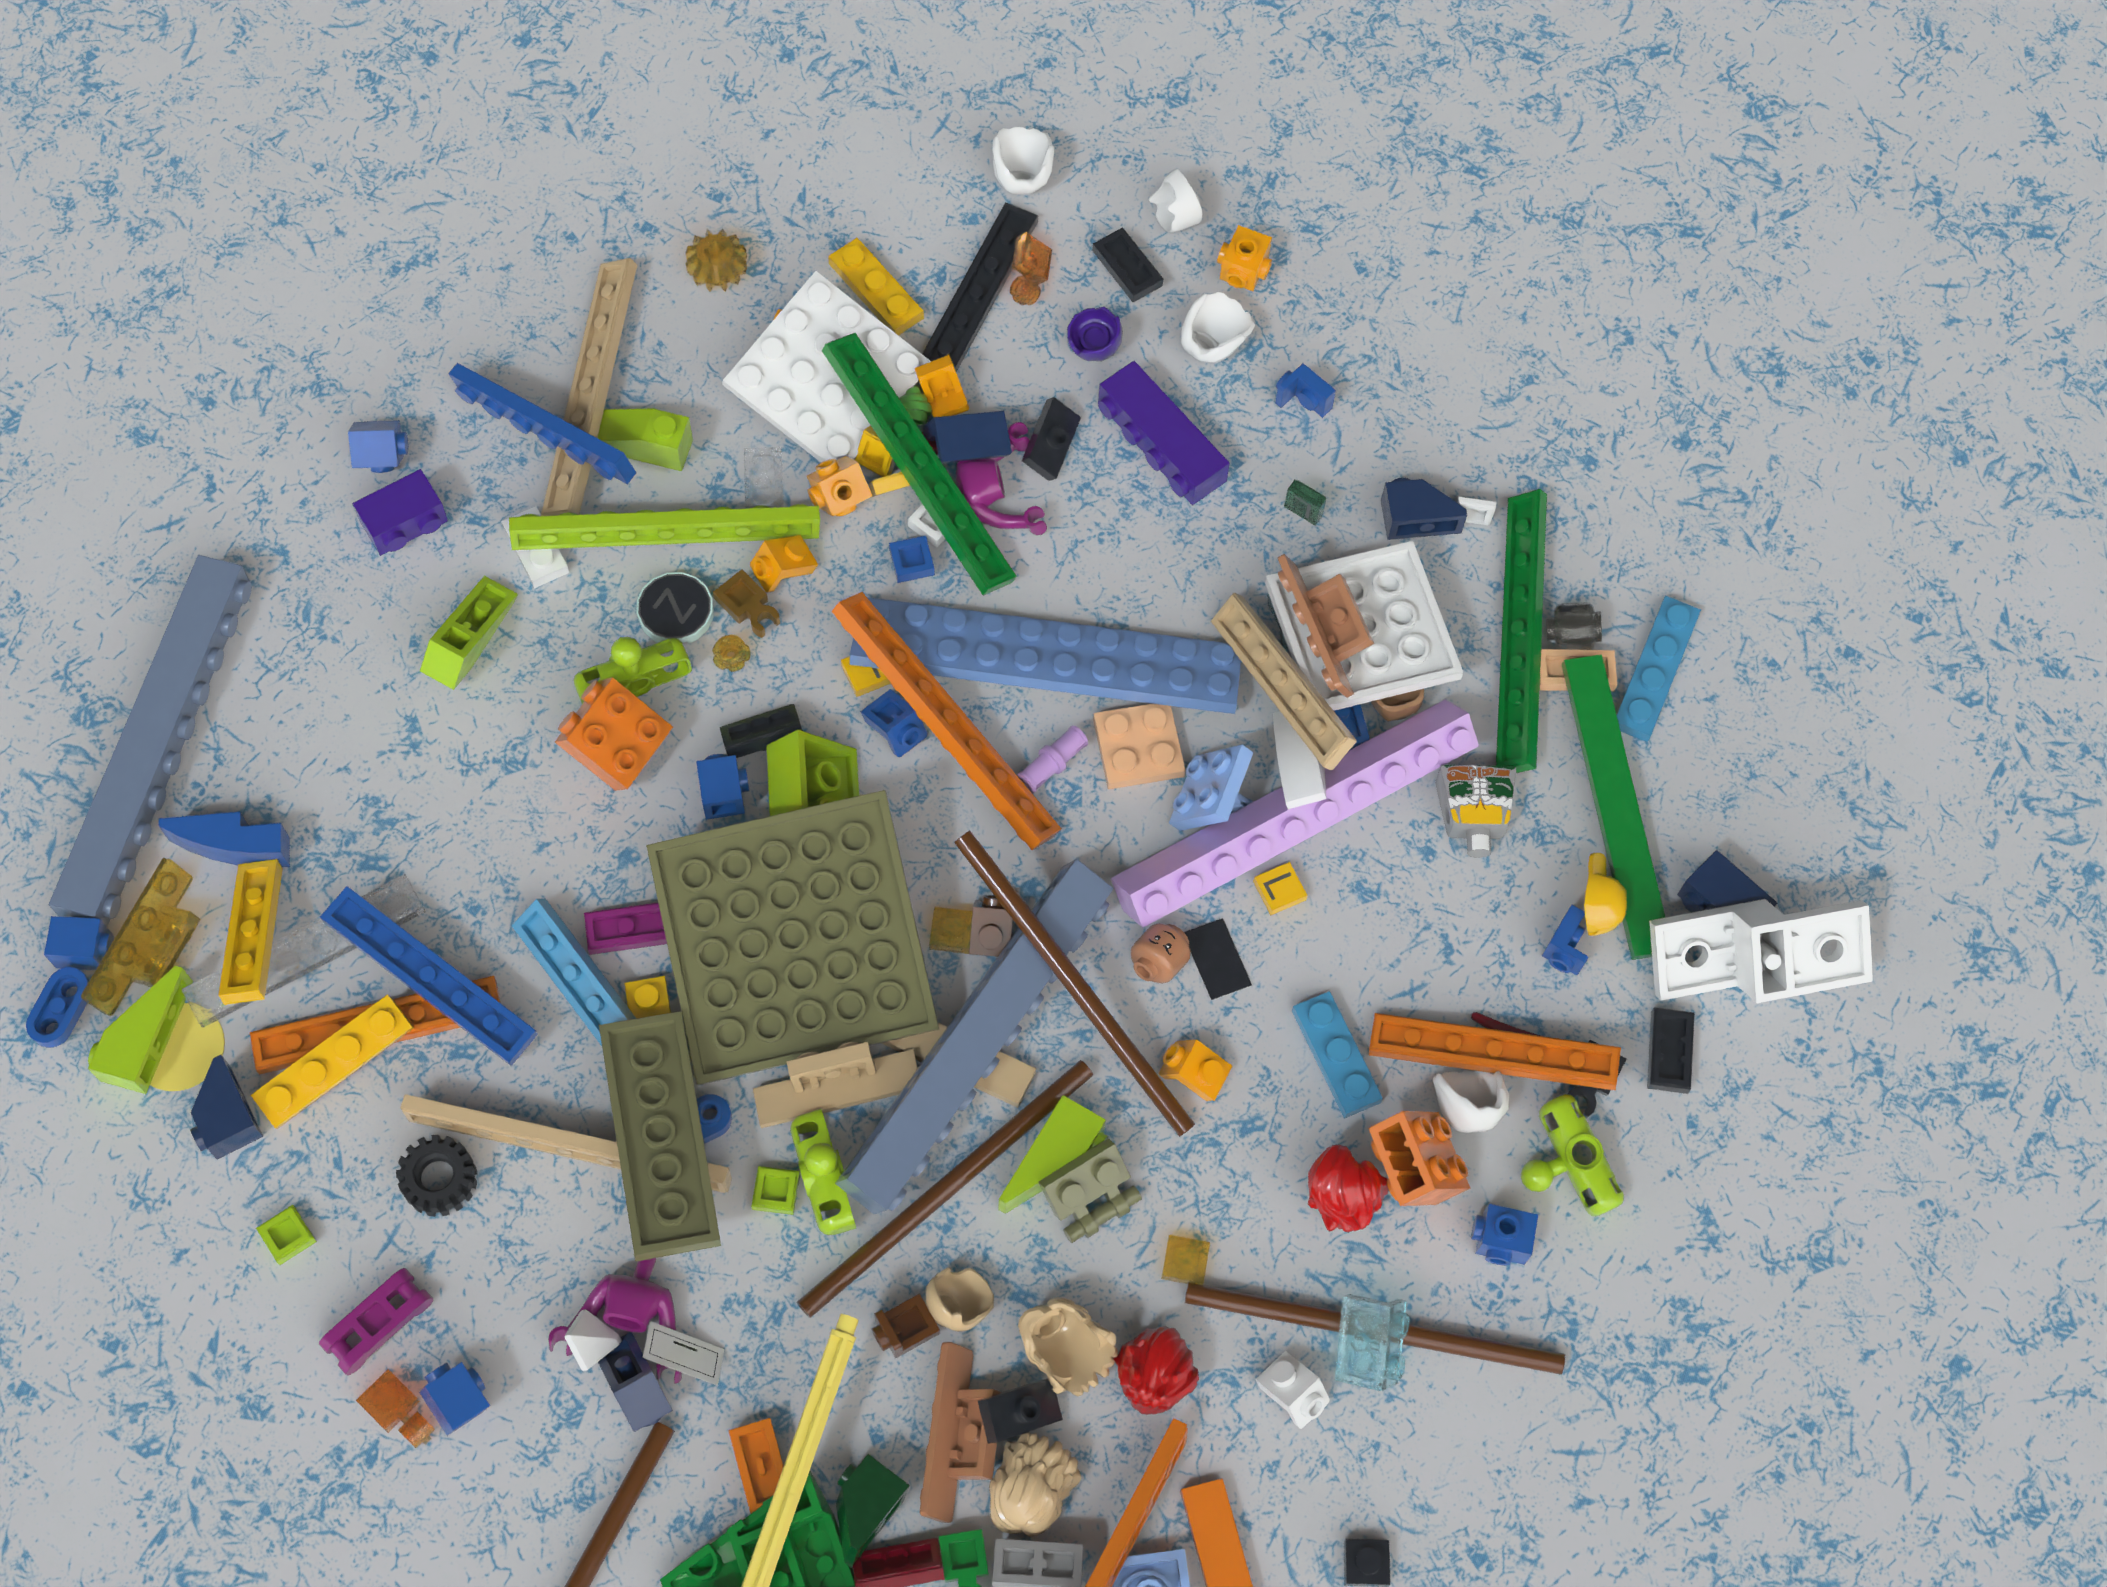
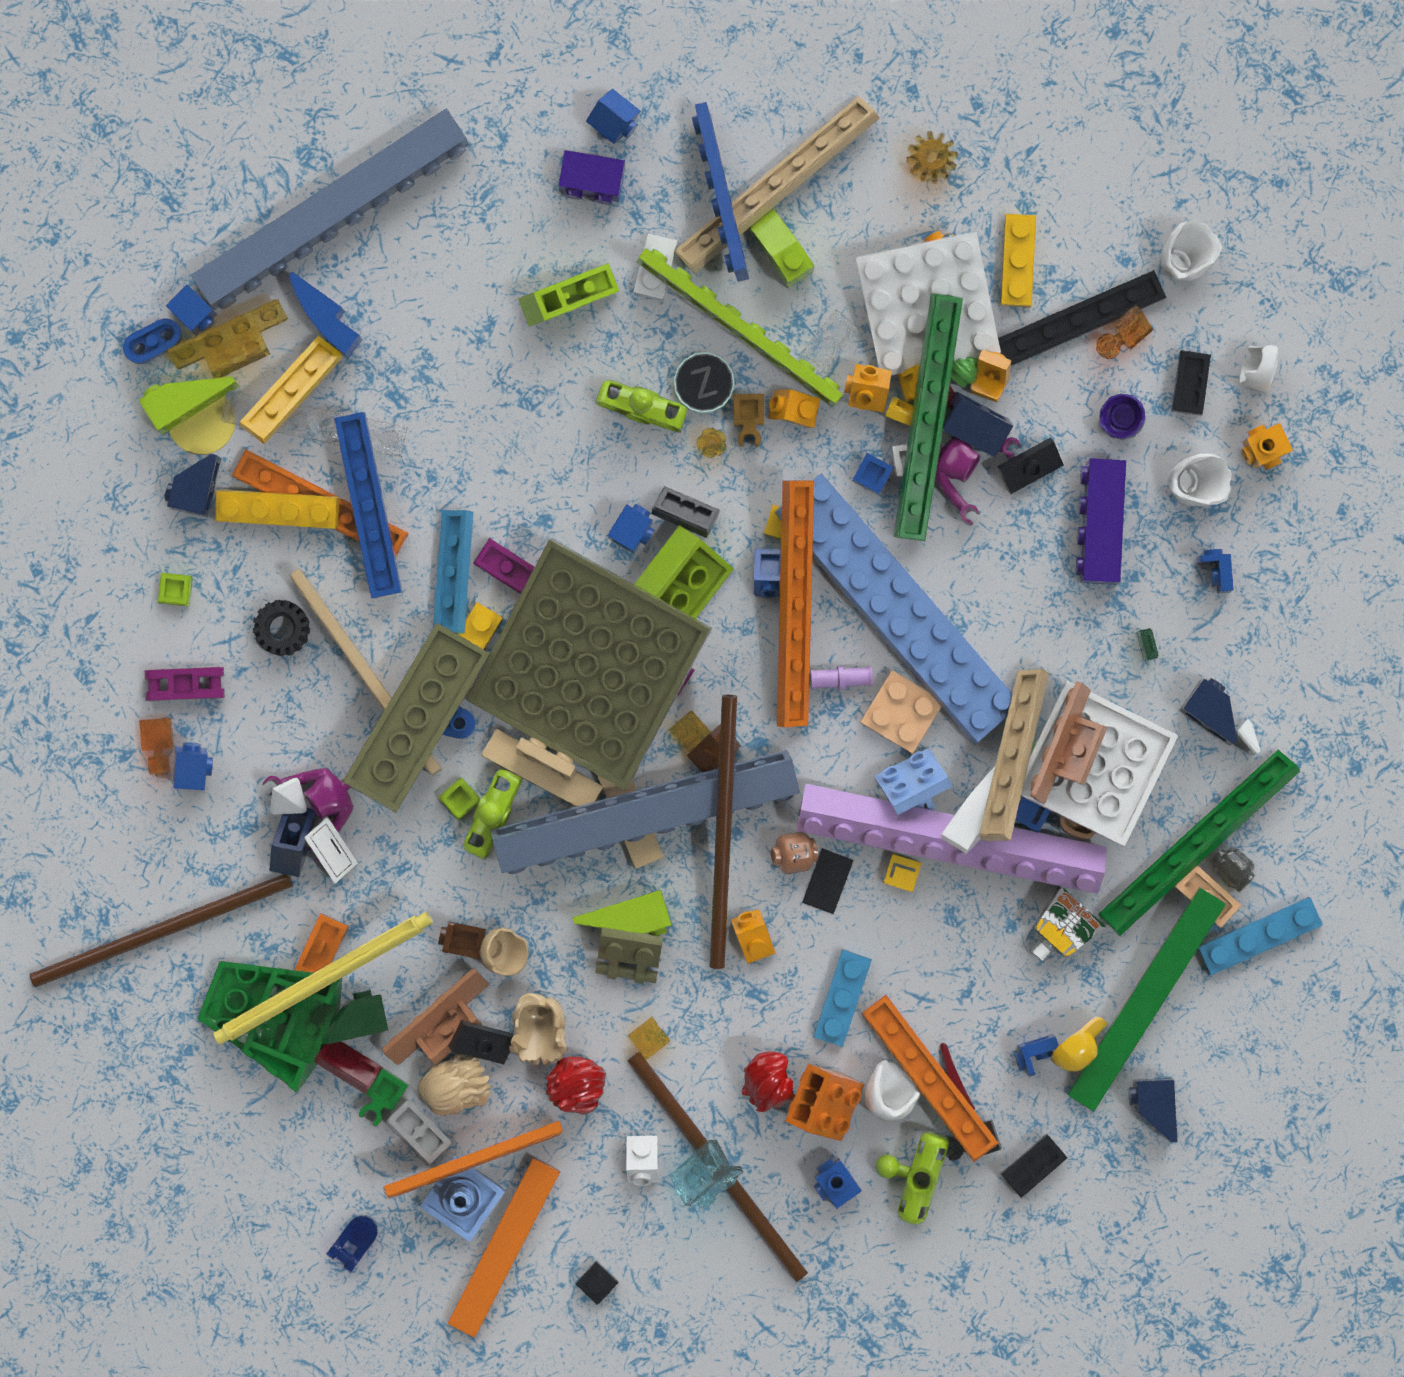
camera: 45 degrees right, 20 degrees up
(612, 733) = (594, 442): orange brick -> none
(943, 1190) = (556, 880): reddish brown piece -> none
(1761, 950) = (1136, 1163): white bracket -> none

